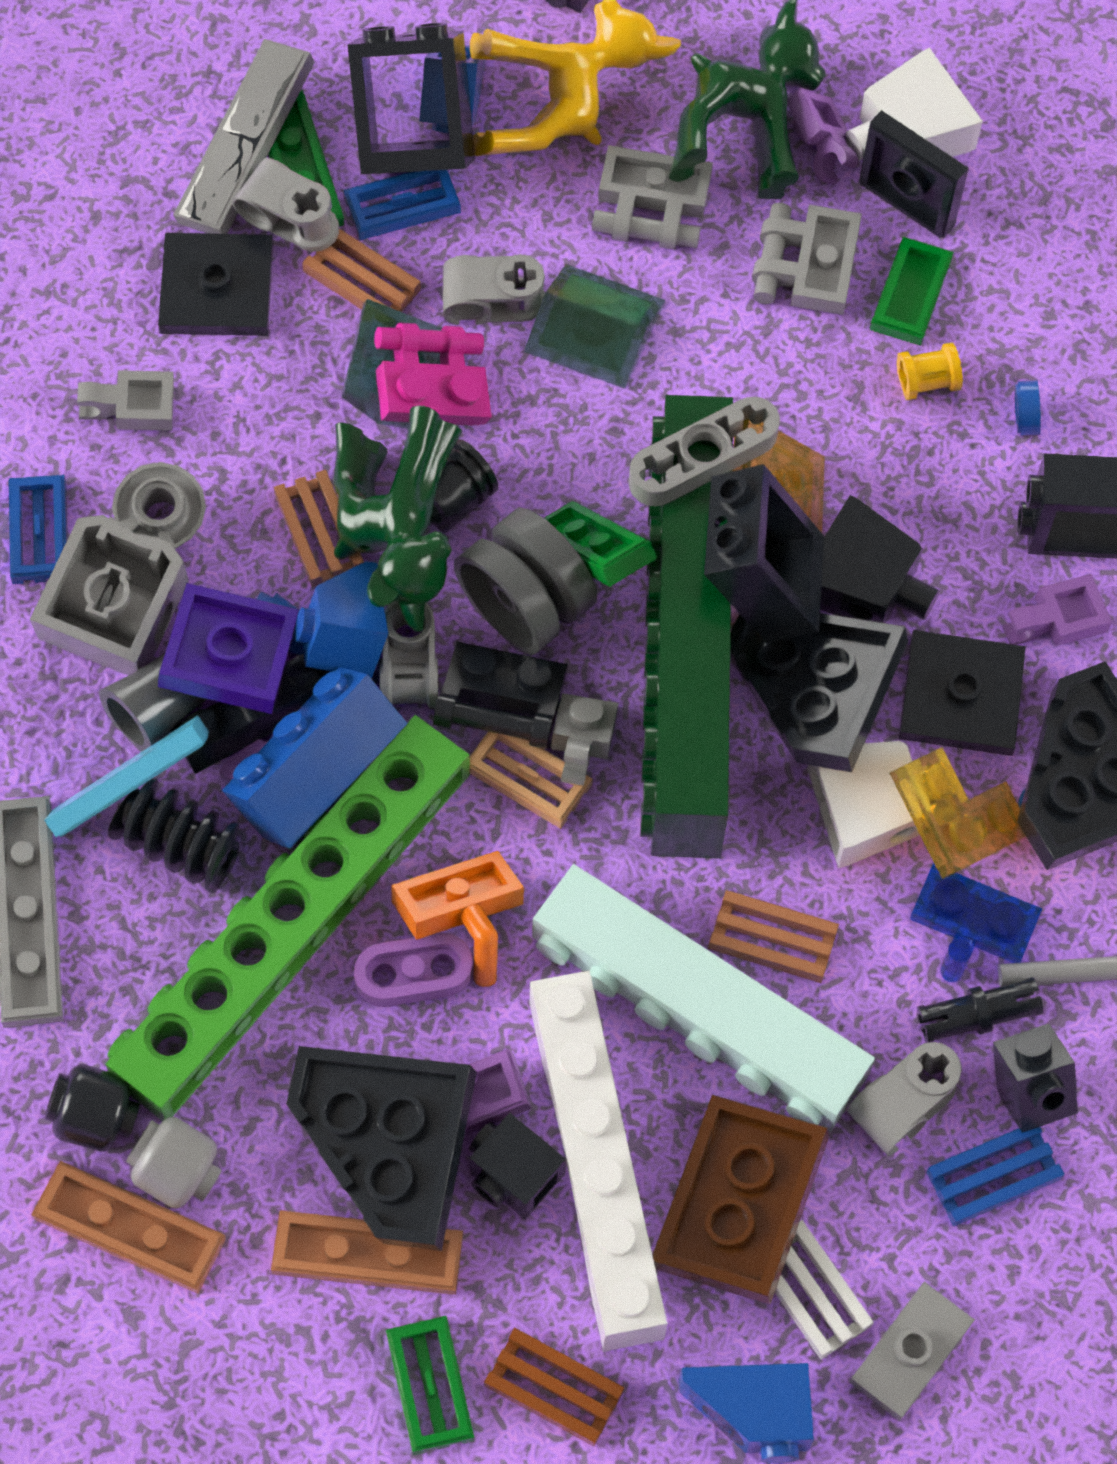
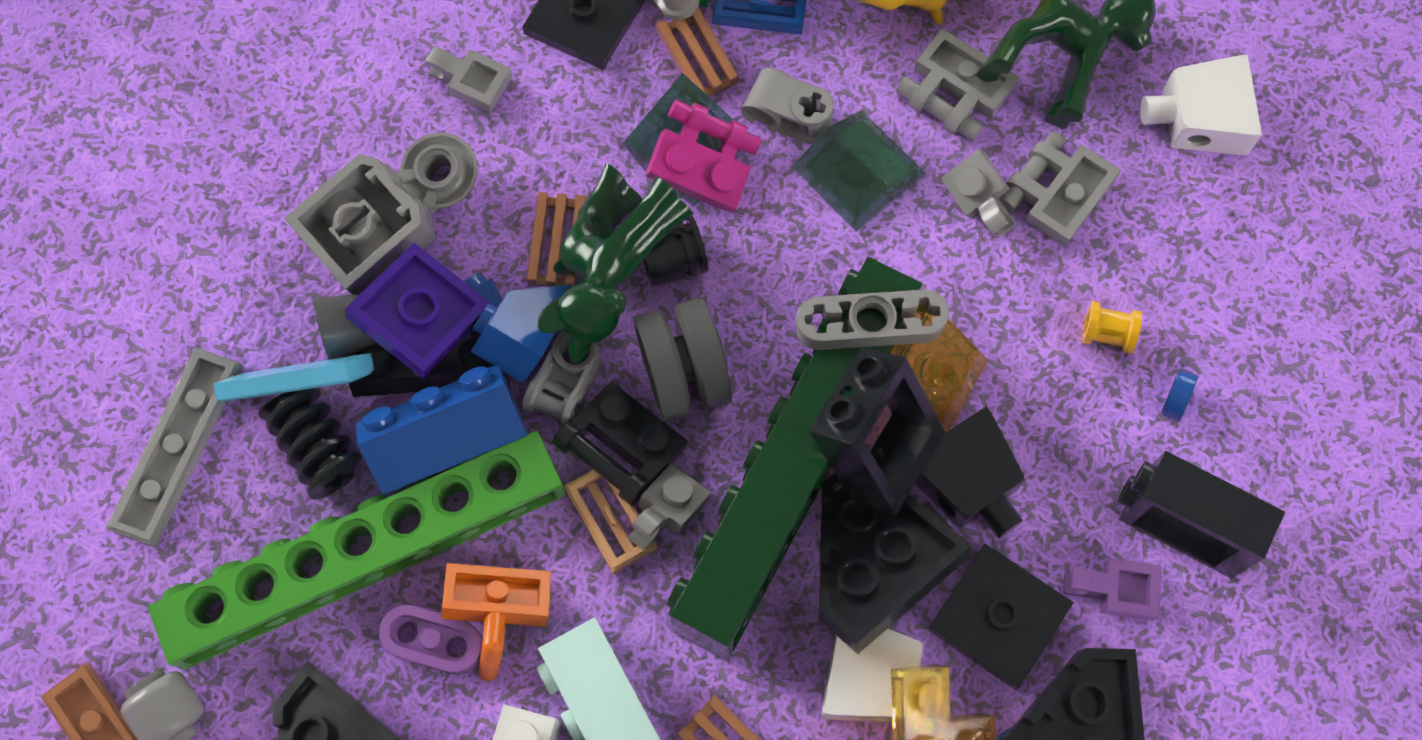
camera: 30 degrees right, 5 degrees up
(40, 570) = (383, 120): blue tile -> none
(91, 1108) = (124, 633): black head -> none
(602, 544) = (751, 353): green tile -> none
(729, 291) = (977, 190): none -> light grey plate
(821, 125) = (1127, 83): medium lavender plate -> none
(911, 291) = (1132, 251): green tile -> none
(912, 174) = (1179, 155): black plate -> none

